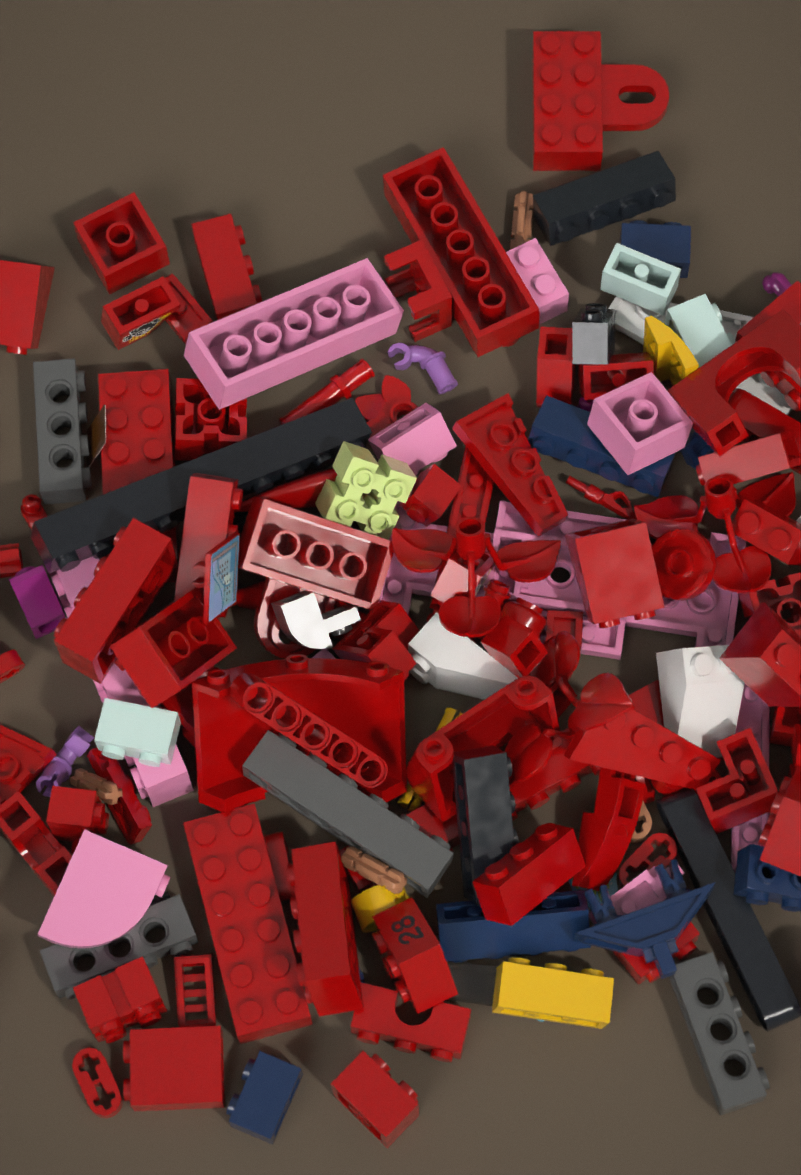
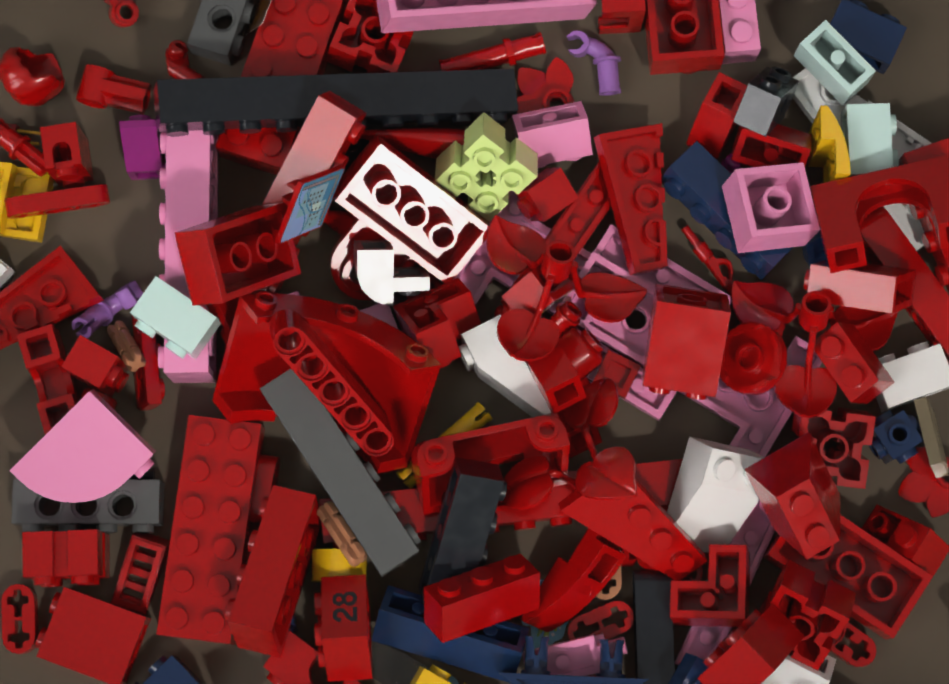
camera: 20 degrees right, 10 degrees up
(115, 599) = (204, 184): red brick -> none

